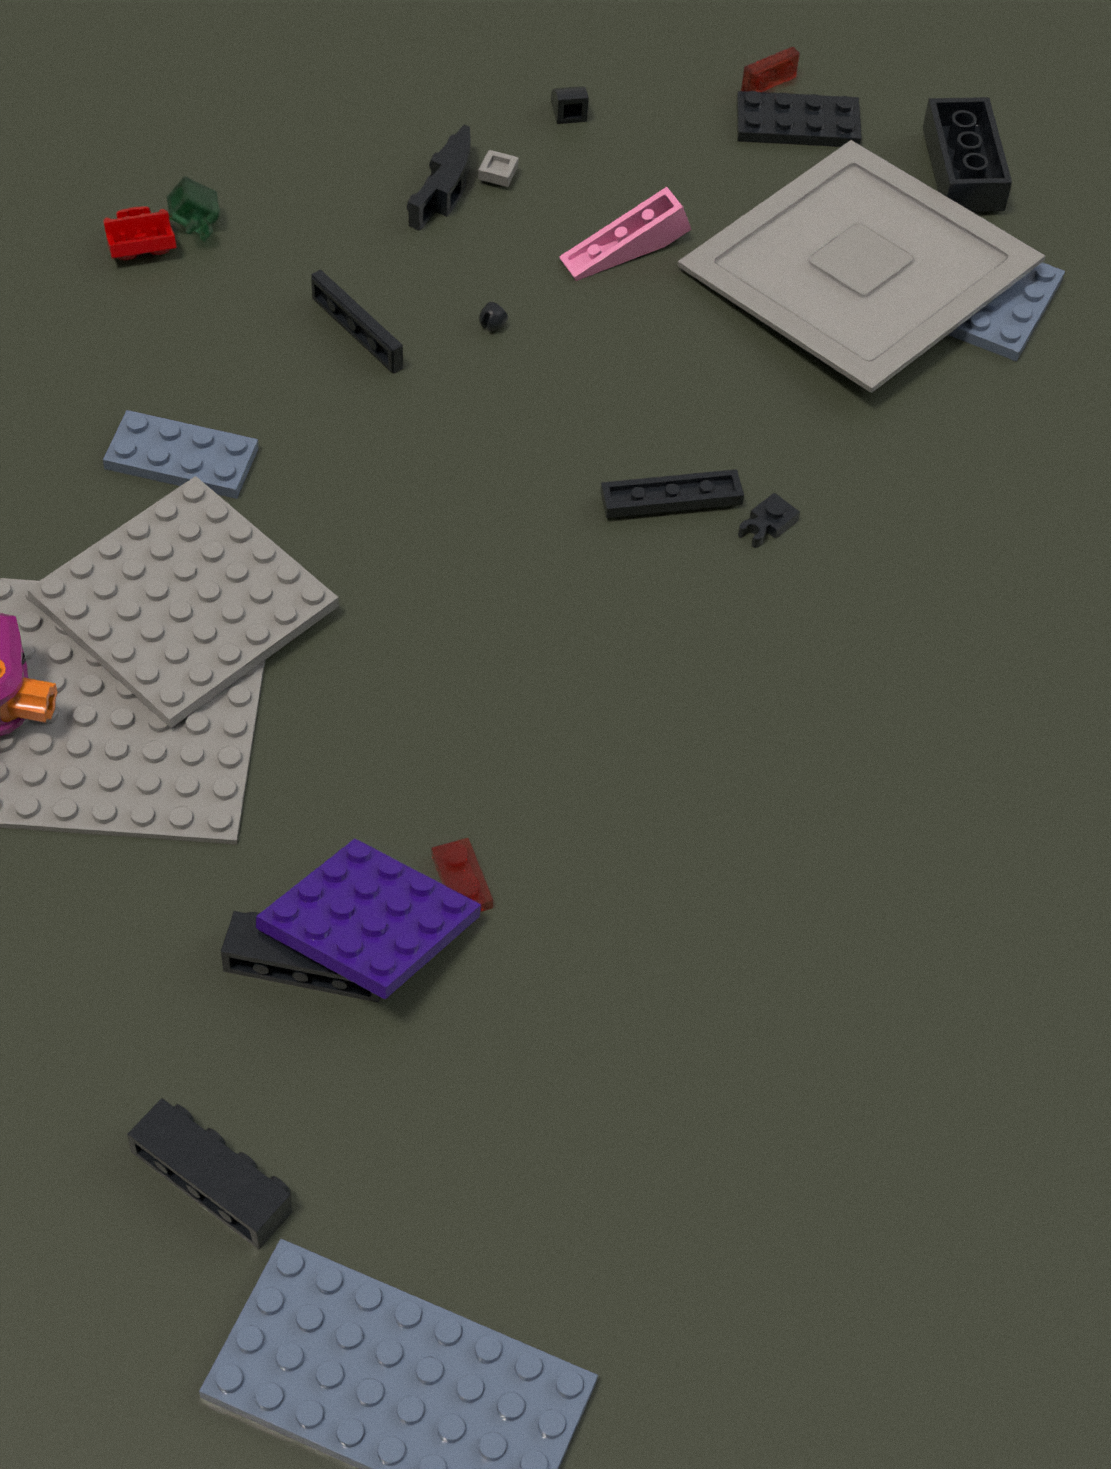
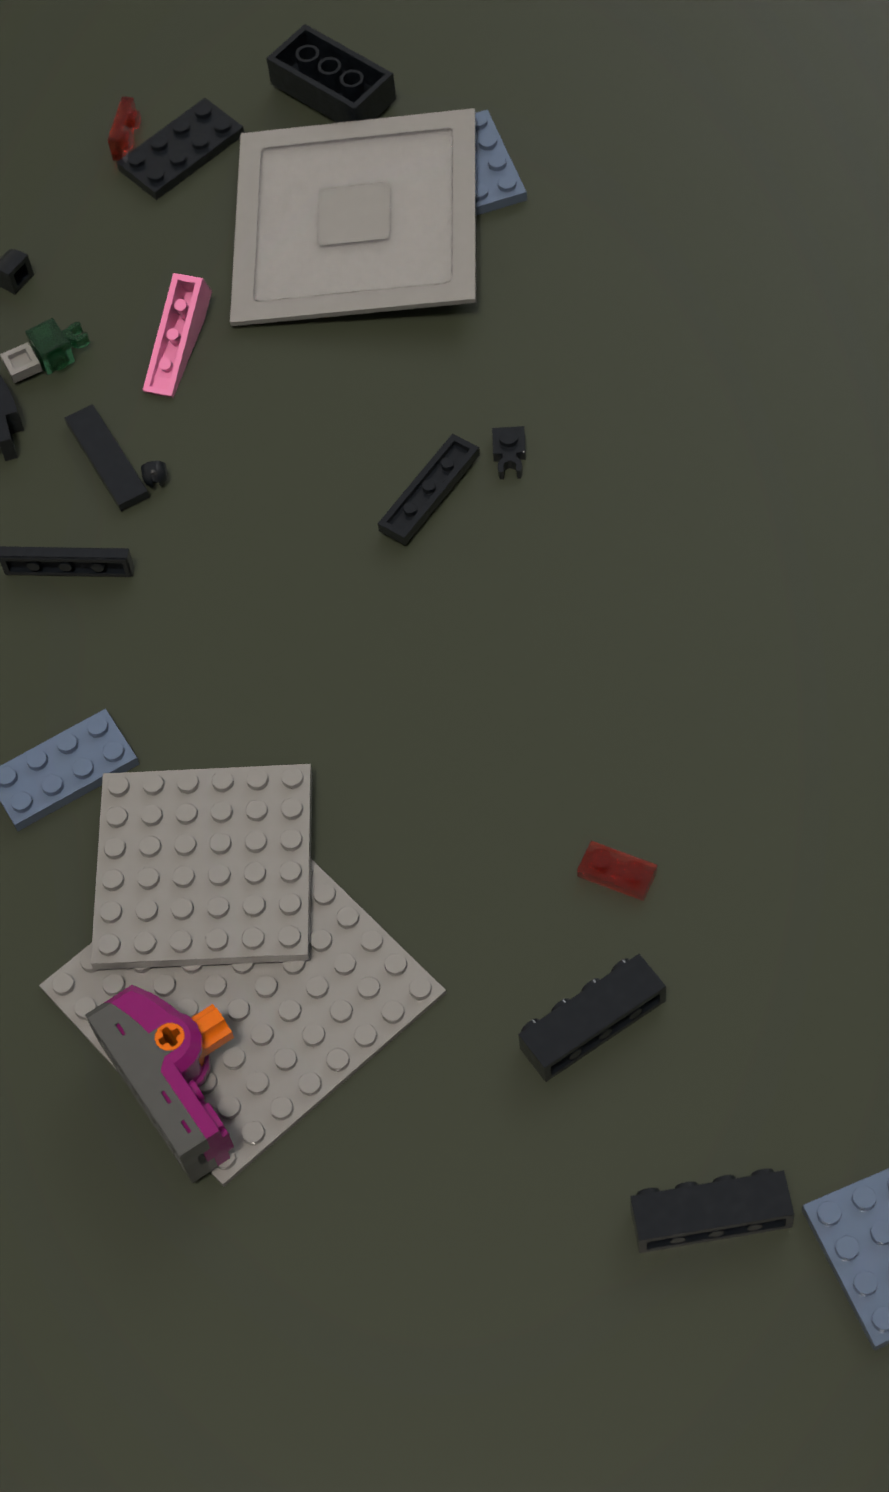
camera: 35 degrees left, 5 degrees up
(368, 918) = (606, 952): dark purple plate -> none
(476, 280) = (107, 457): none -> black tile
(533, 173) = (54, 346): none -> clear green brick

